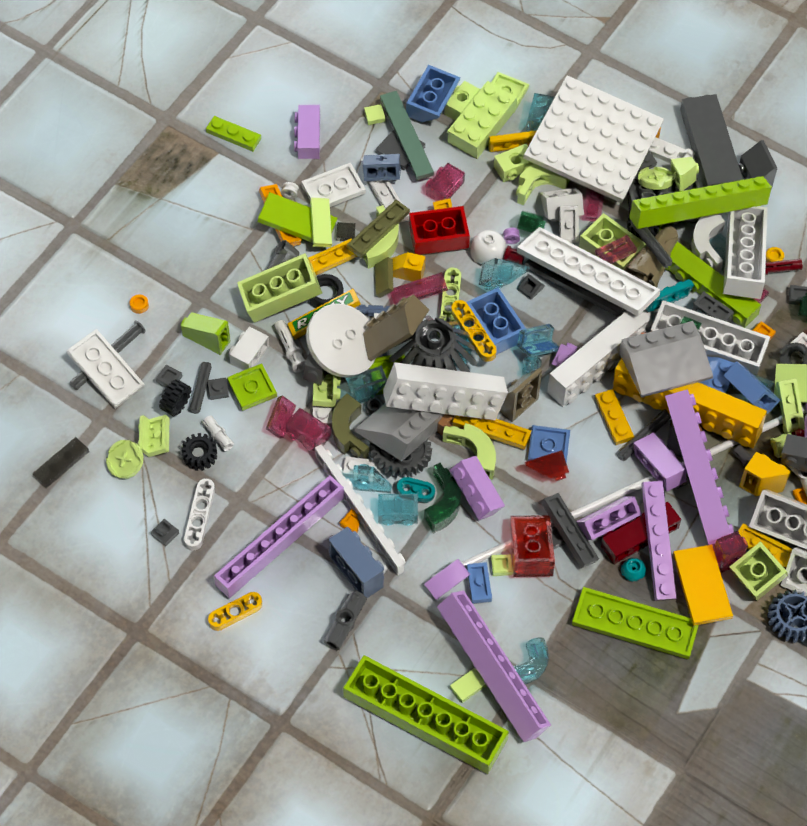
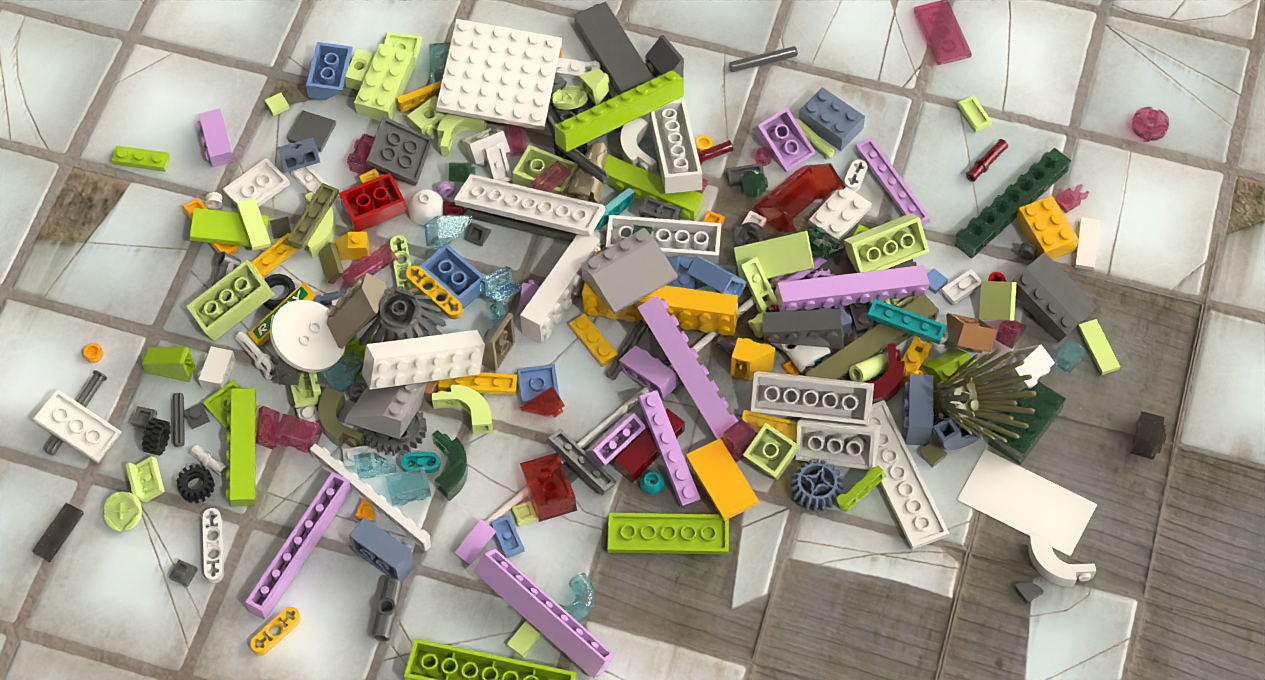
camera: 15 degrees left, 0 degrees up
(252, 429) = (242, 447): none -> lime brick
(406, 135) = (315, 117): sand green tile -> none
(477, 187) = (399, 151): none -> dark grey plate
(477, 487) = (480, 445): lavender brick -> none

